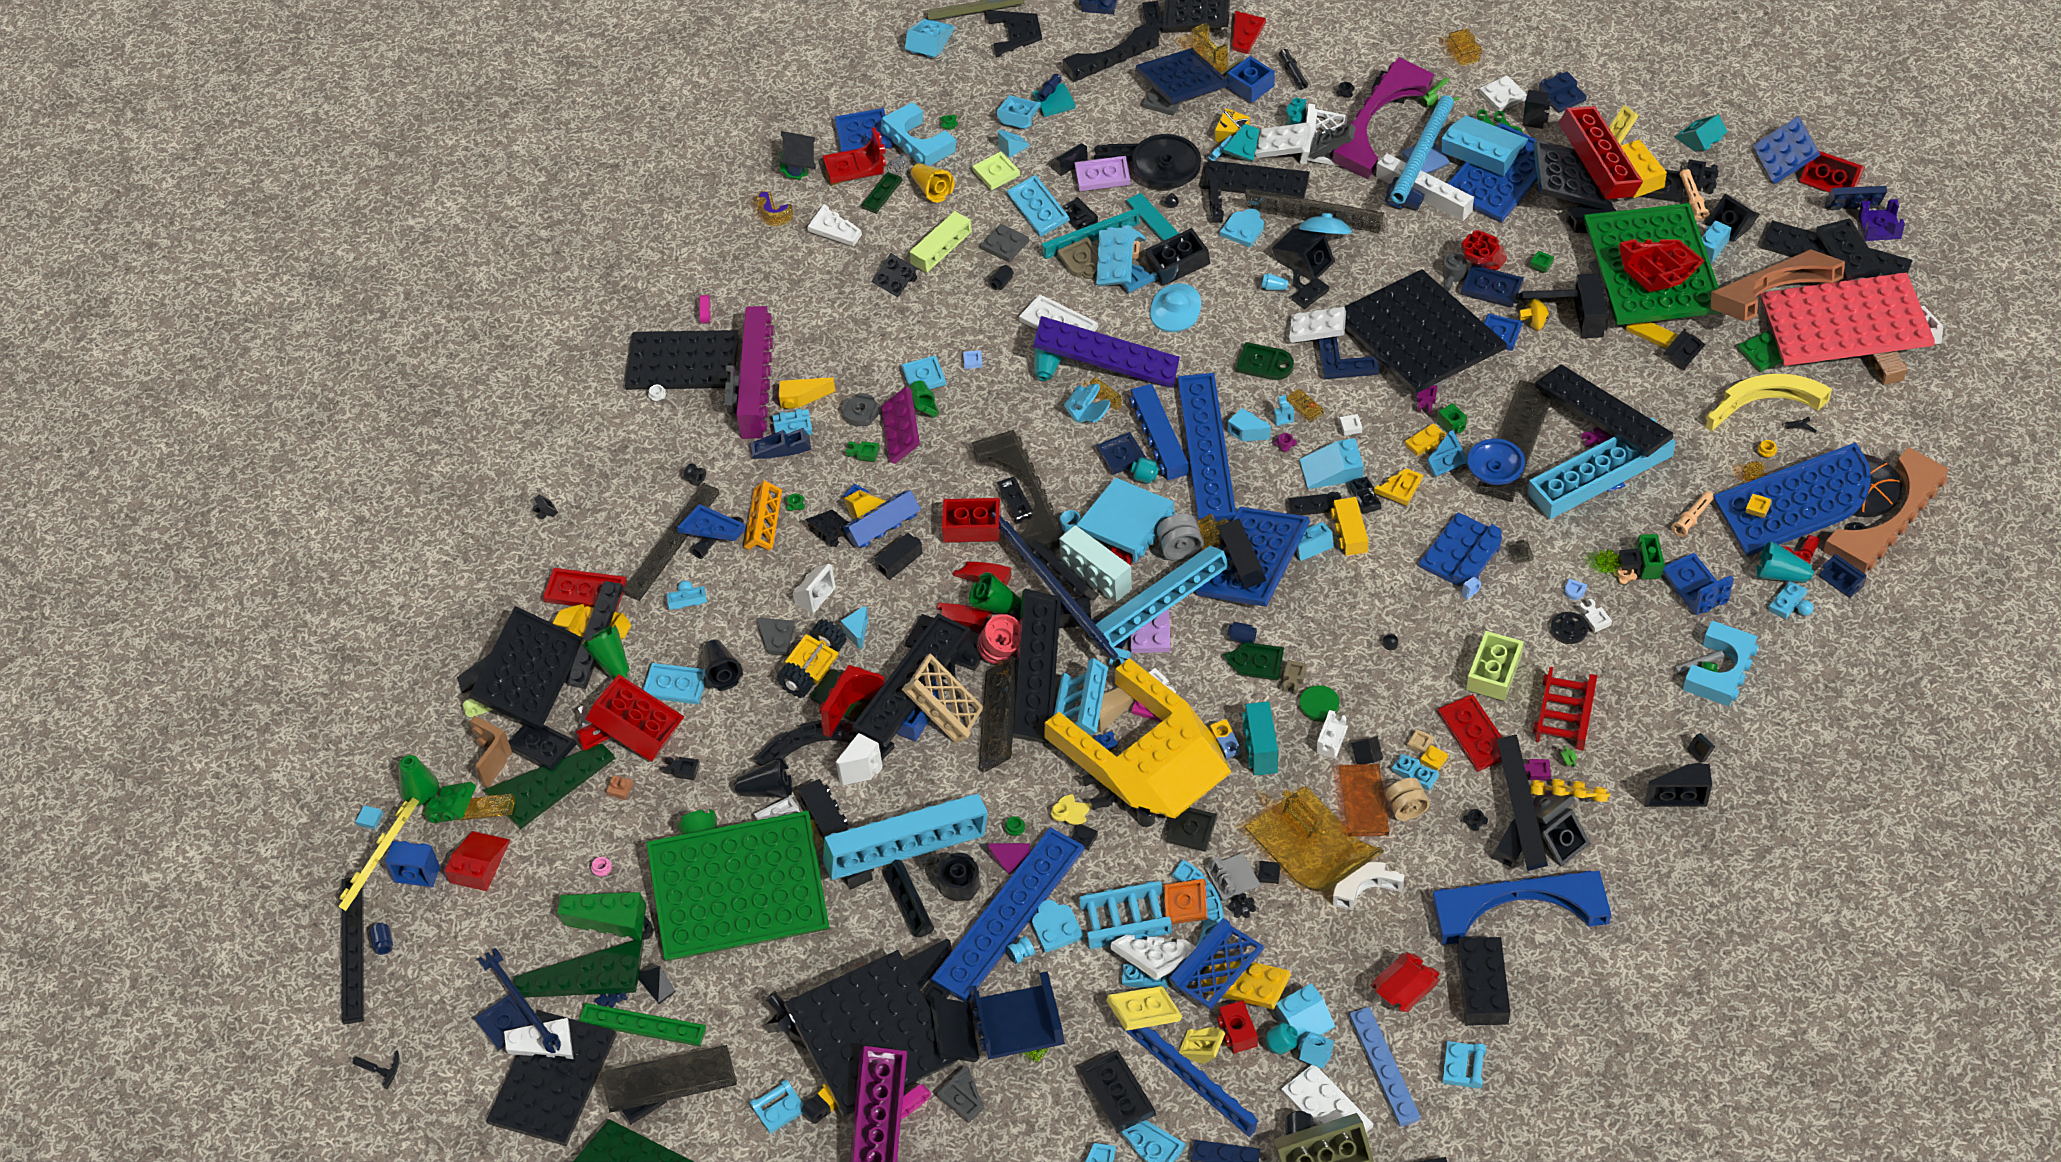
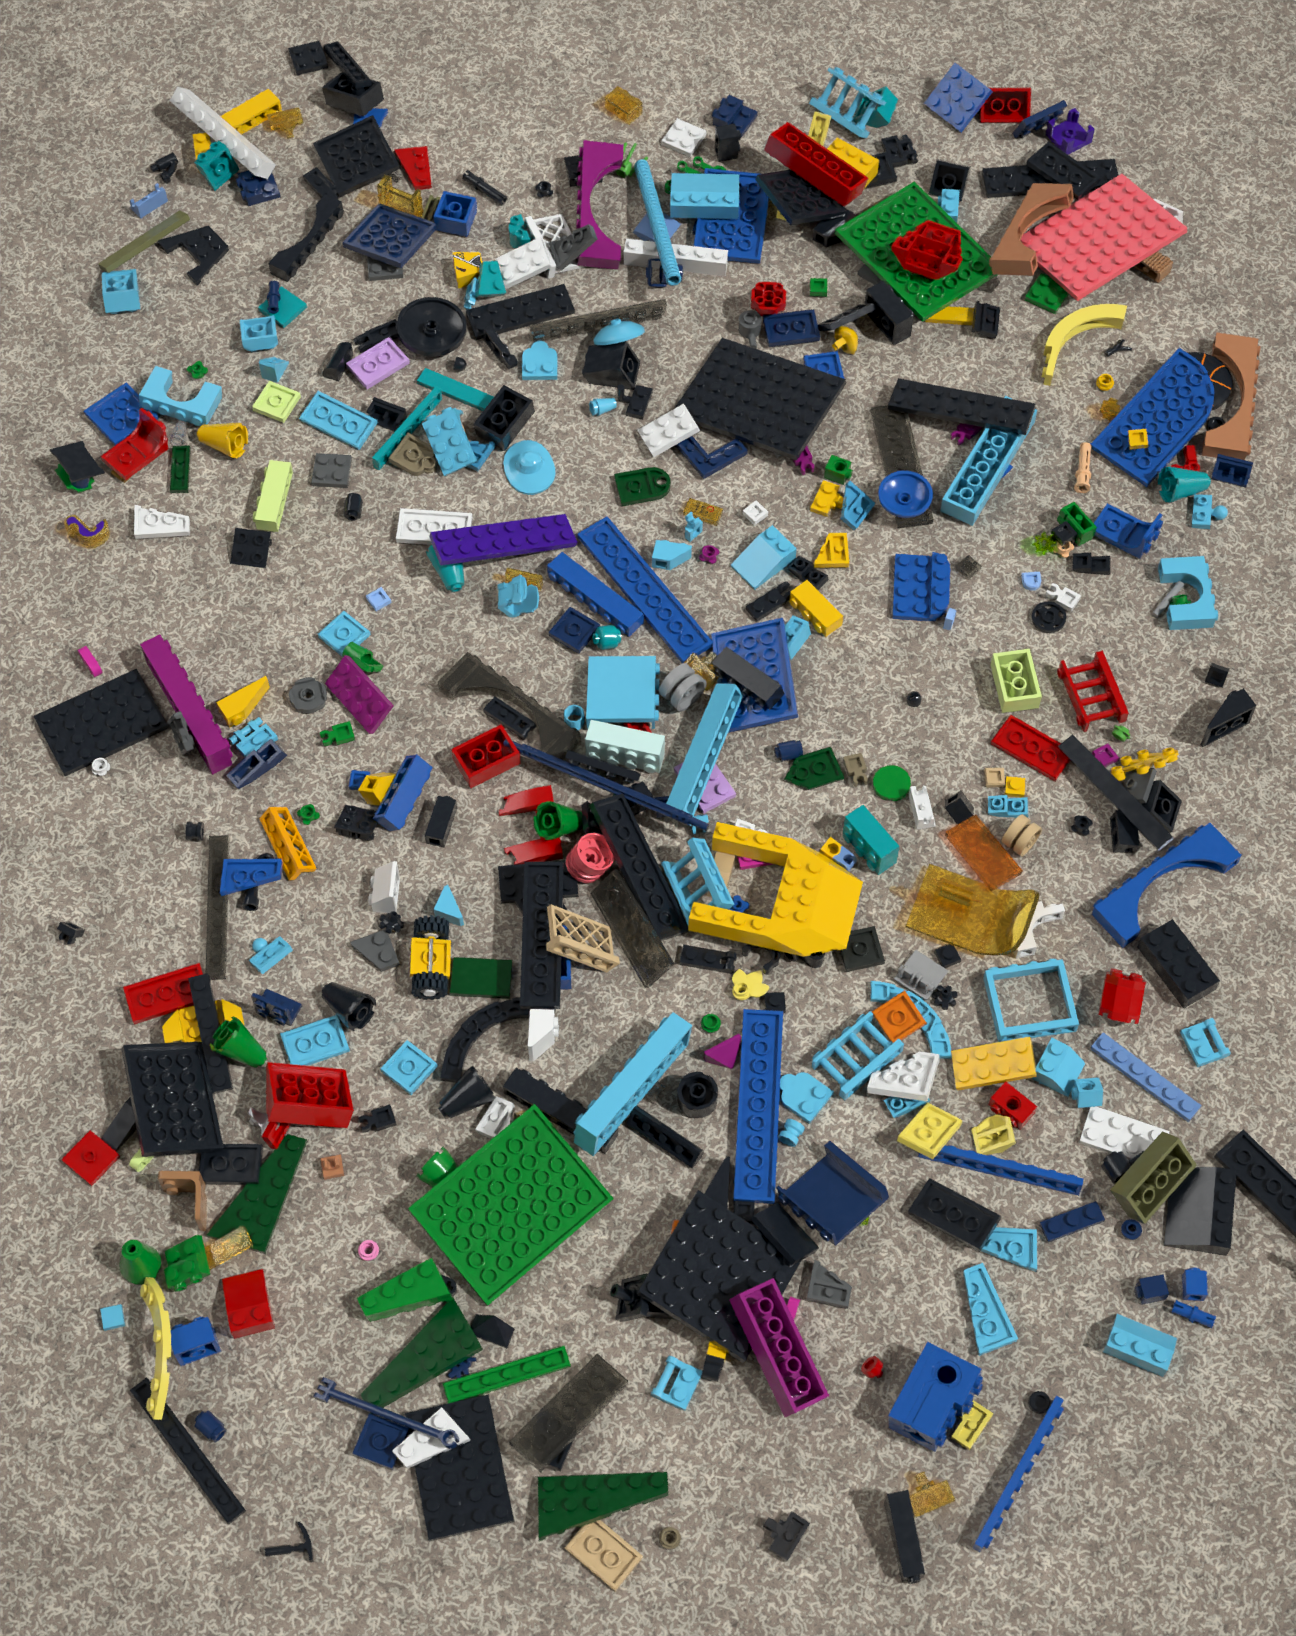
camera: 35 degrees left, 10 degrees up
(439, 687) = (90, 1158): none -> red plate
(663, 639) = (276, 1006): none -> dark blue bracket
(735, 738) = (409, 1067): none -> medium azure plate
(802, 617) = (391, 921): none -> black plant
(851, 686) = (491, 965): red bracket -> none
(1050, 773) = (708, 959): none -> black plate
(1200, 957) = (948, 1057): blue fence -> none
(1282, 1038) = (1055, 1097): teal head -> none
(1312, 974) = (1036, 1029): none -> medium azure window
(1641, 599) = (1091, 564): none -> black slope
(1658, 121) = (834, 110): none -> medium azure fence
(1696, 201) = (911, 176): light nougat pin -> none

